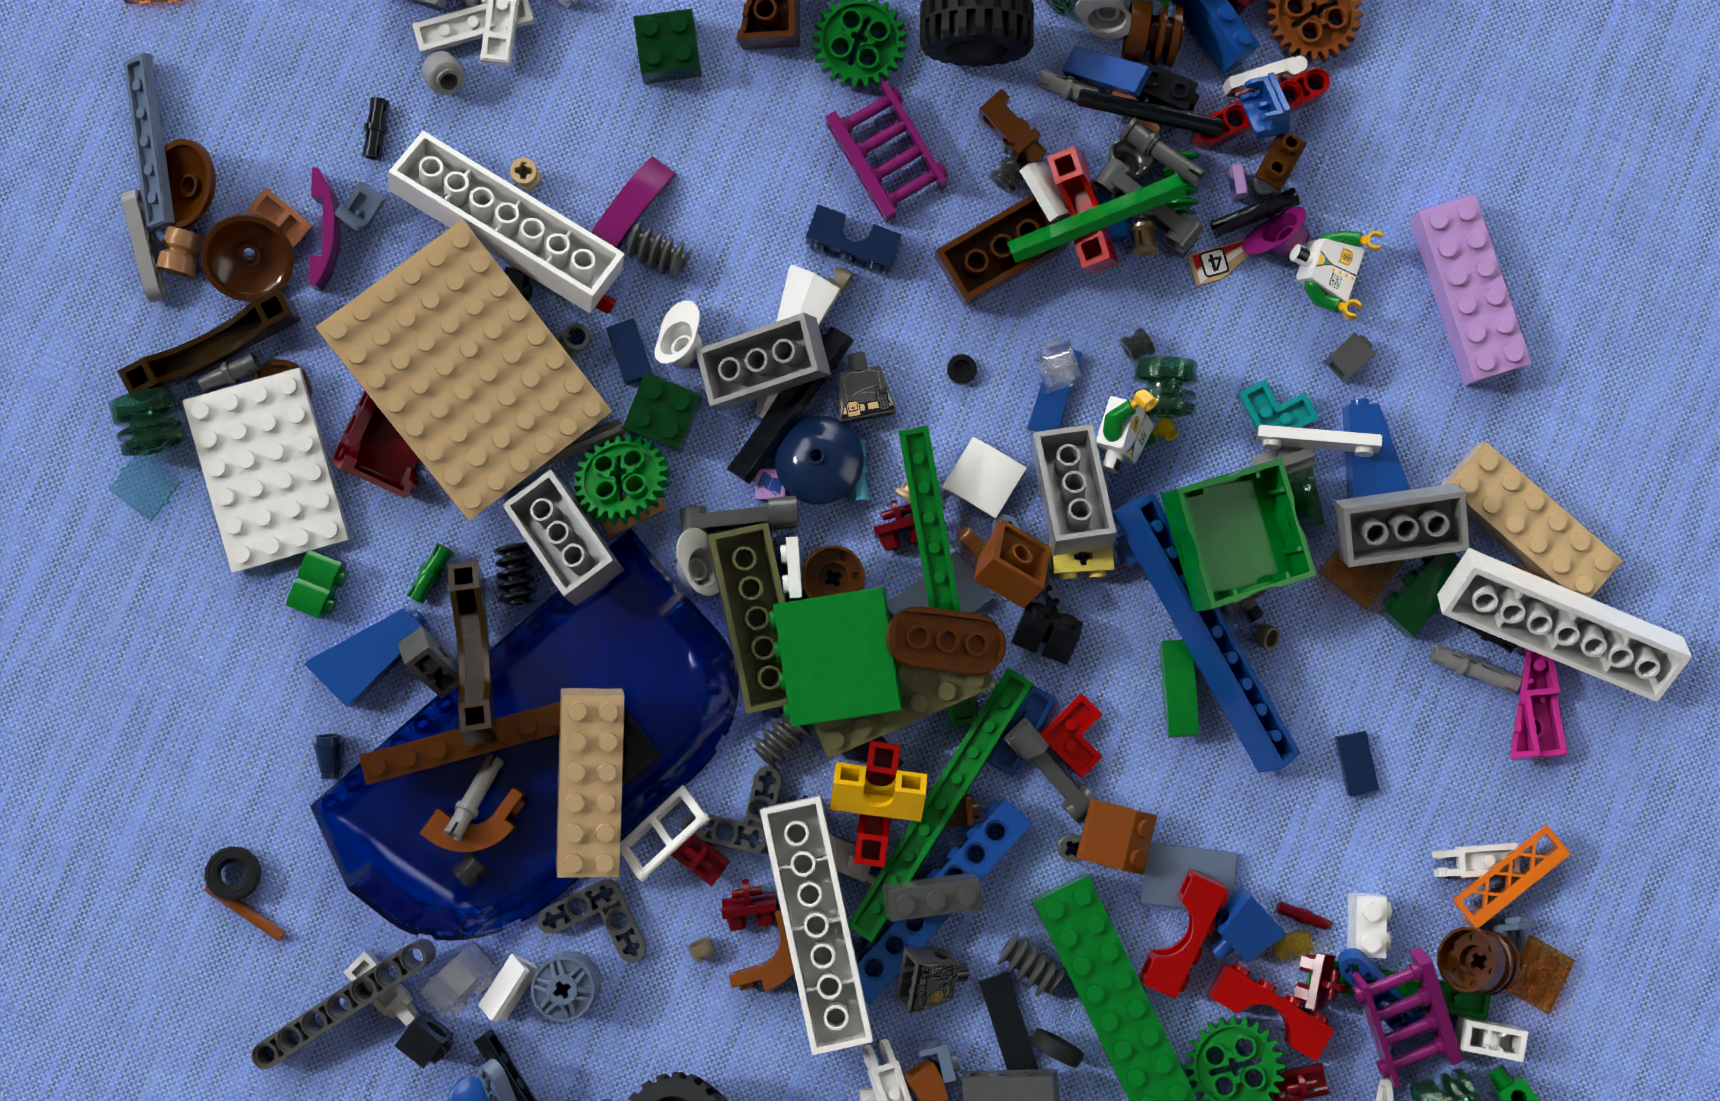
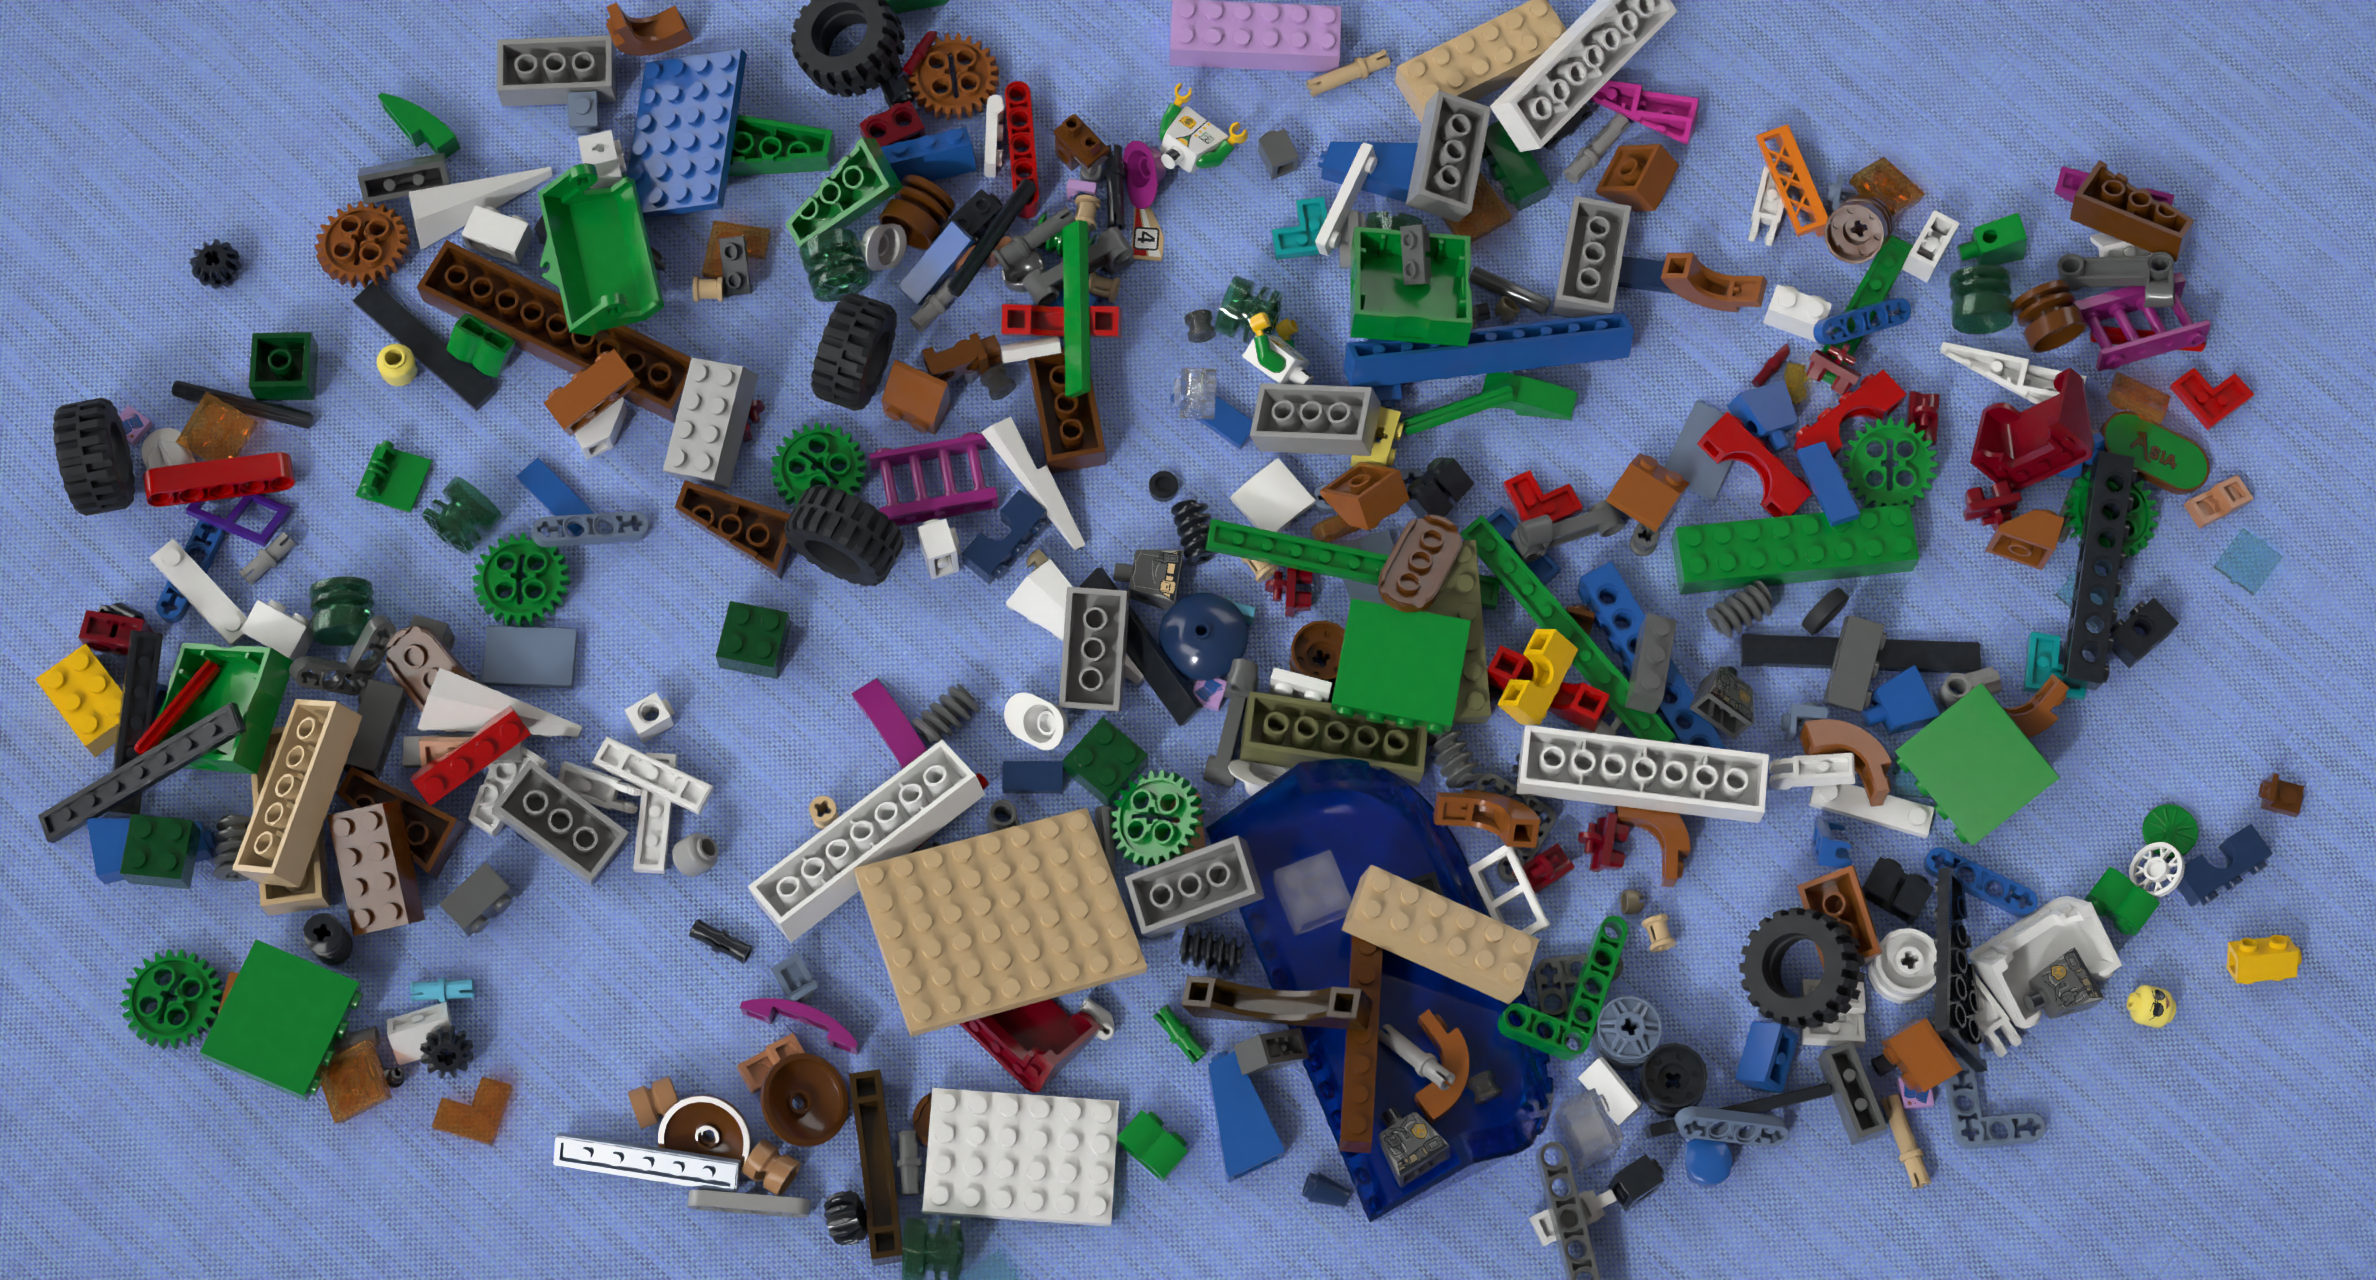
camera: 70 degrees left, 15 degrees down
(154, 334) = (846, 1218): none -> black gear
(202, 125) = (653, 1102): none -> medium nougat wheel
(392, 818) = (1411, 1146): none -> torso
(421, 496) = (1101, 1016): none -> white arm
(518, 1051) = (1678, 1063): none -> black wheel
(579, 931) = (1581, 1000): none -> green beam
(601, 648) = (1312, 892): none -> clear brick
(678, 985) = (1658, 933): none -> tan bush
(738, 791) = (1489, 811): none -> dark orange arch
(785, 86) = (844, 535): none -> black tyre
(815, 180) = (939, 547): none -> white brick
(925, 413) = (1193, 530): none -> black piece
(939, 213) = (1038, 482): none -> white wedge
(959, 103) = (915, 398): none -> dark orange slope
(1139, 624) = (1458, 409): none -> green axle
(1186, 1012) = (1828, 484): none -> blue tile
(1216, 194) = (1087, 209): none -> tan bush
(1262, 533) = (1414, 244): none -> dark grey hinge
(1266, 107) = (1029, 135): blue hinge -> none
(1288, 632) = (1509, 289): none -> dark grey axle
(1348, 703) = (1591, 258): none -> light grey brick
(1362, 829) = (1708, 288): none -> dark orange arch
(1436, 1019) = (1901, 282): magenta fence -> none
(1458, 720) = (1638, 176): none -> dark orange slope
(1465, 396) = (1358, 69): none -> tan pin

